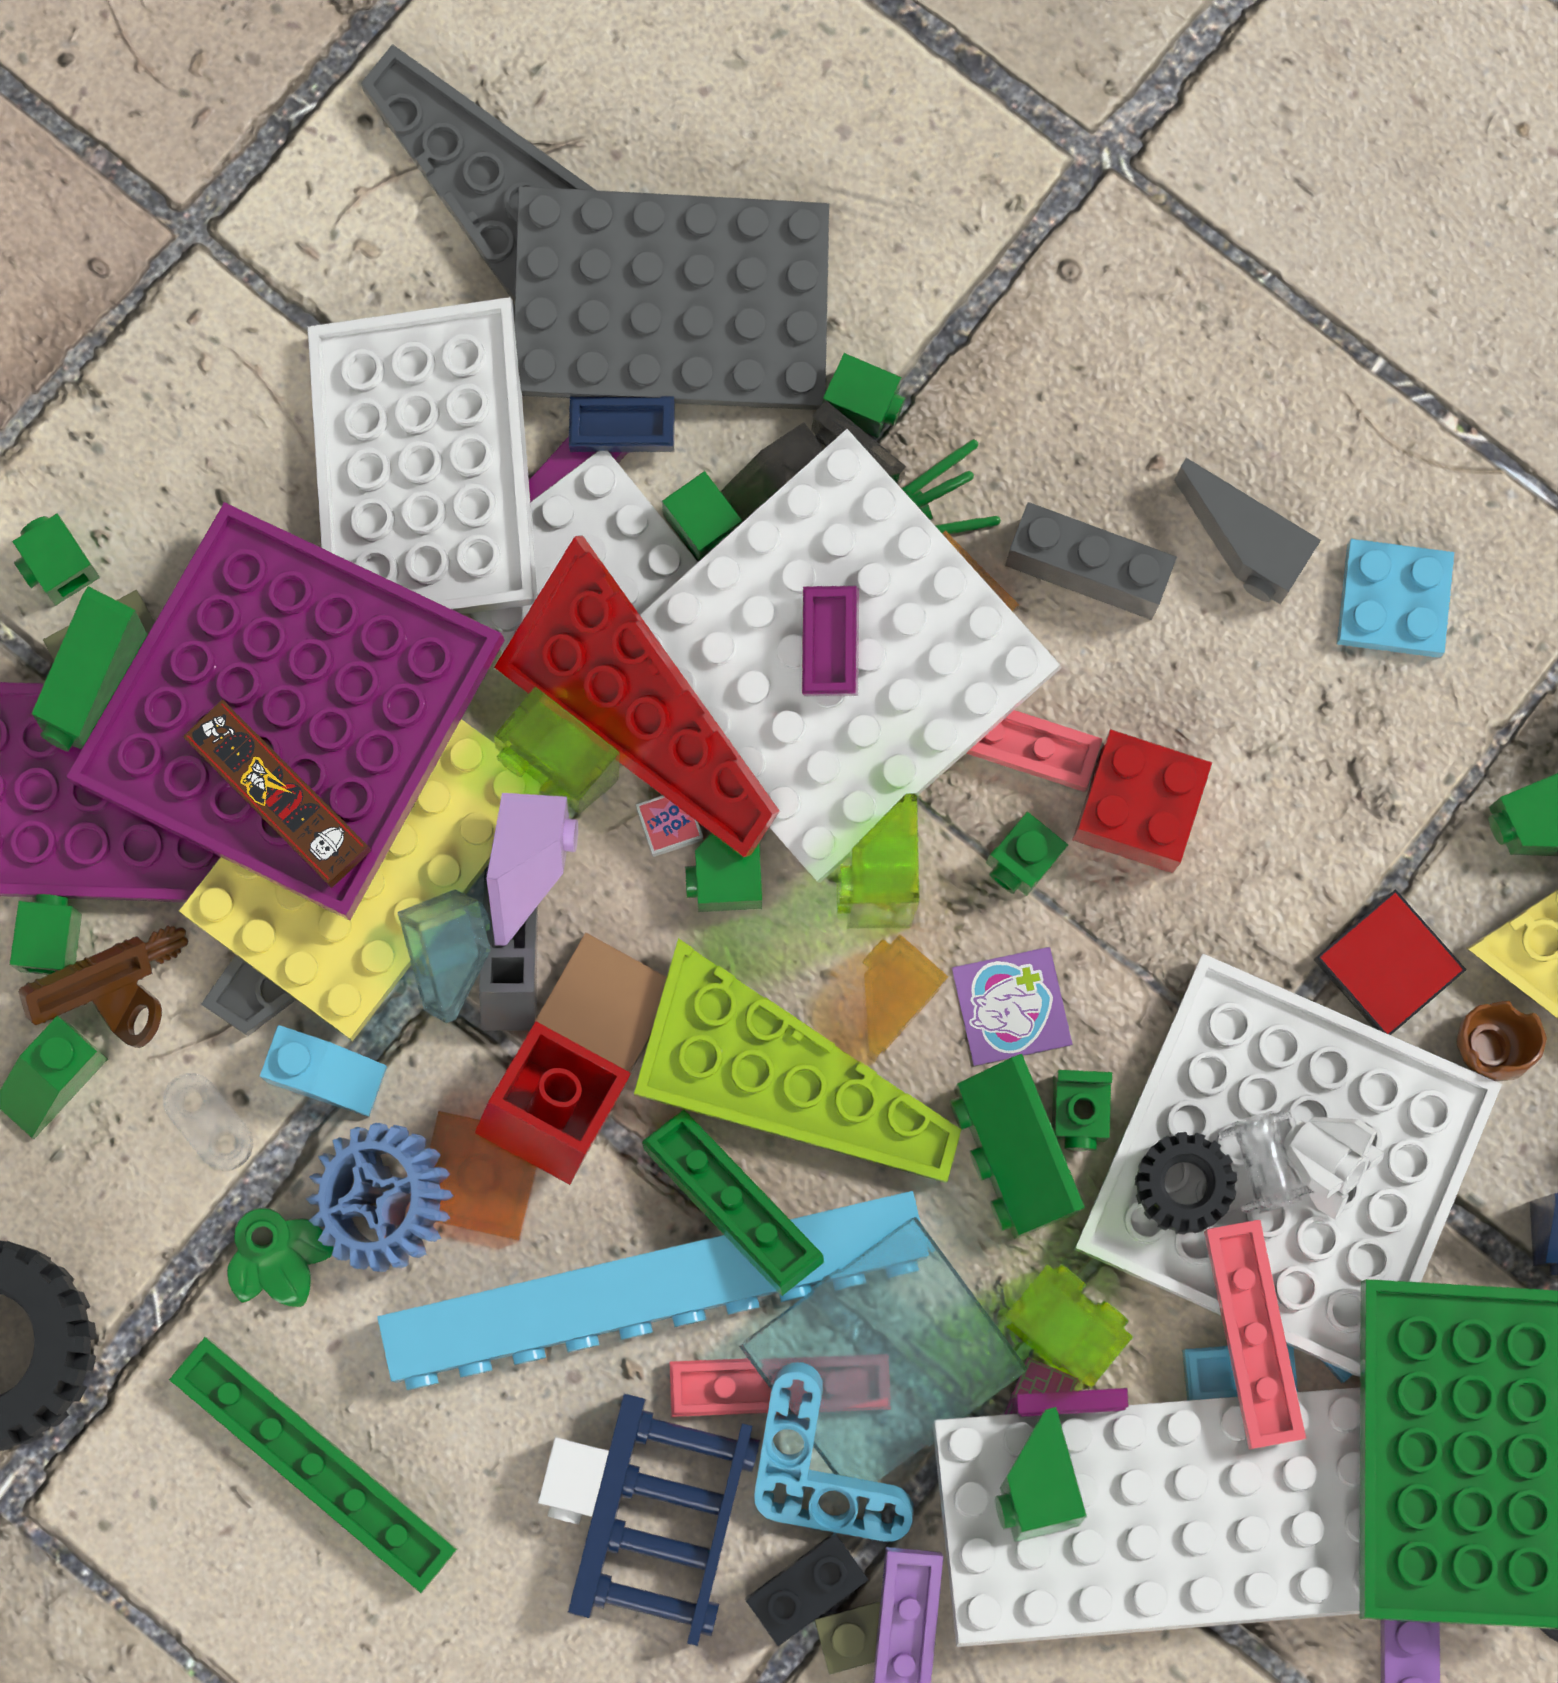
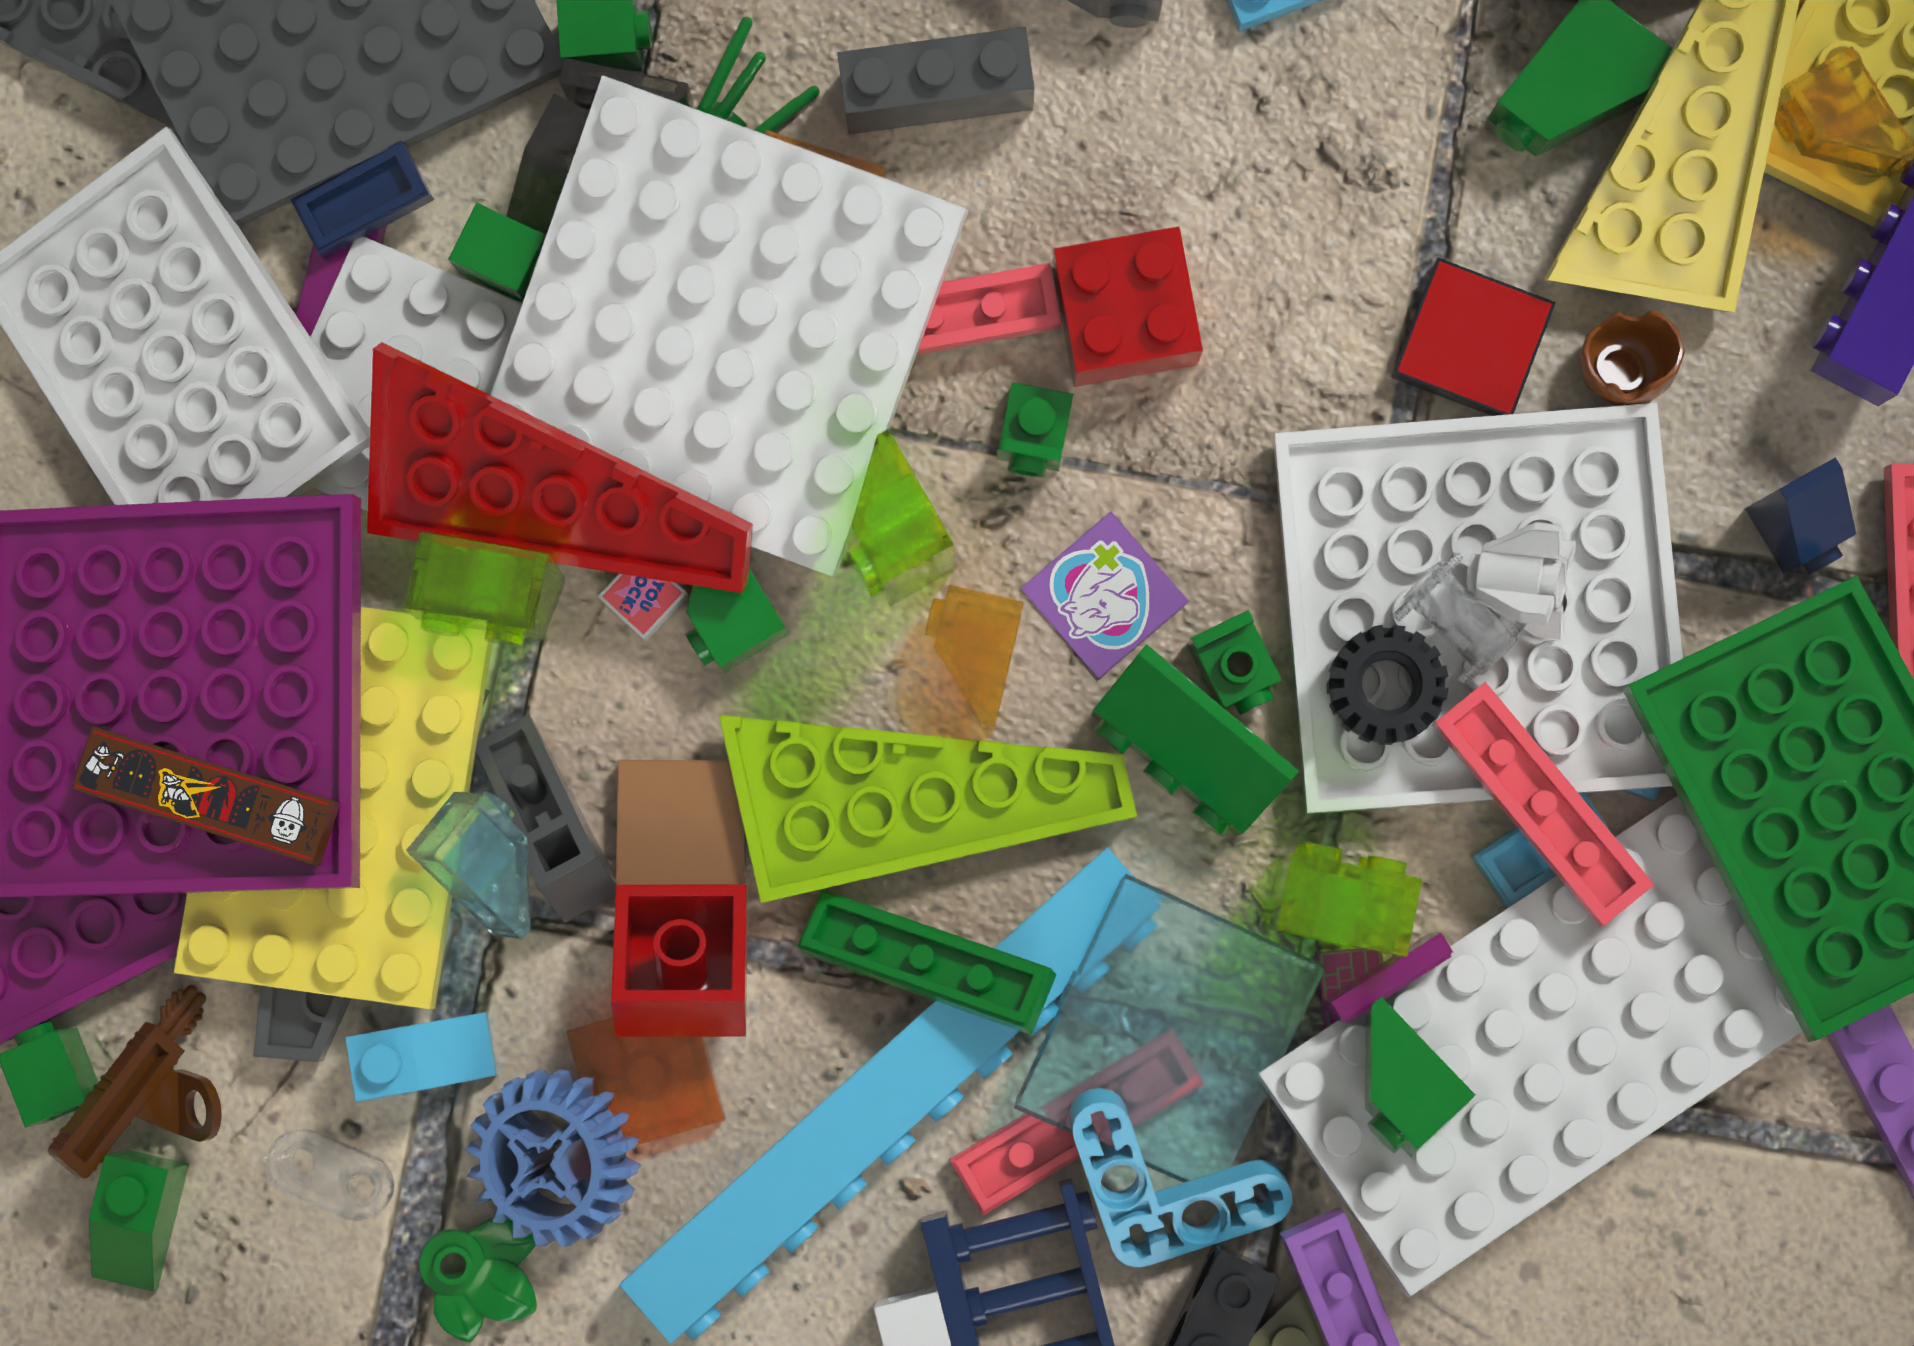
camera: 20 degrees left, 5 degrees up
(526, 857) = (510, 719): lavender slope -> none
(830, 641) = (708, 313): magenta tile -> none

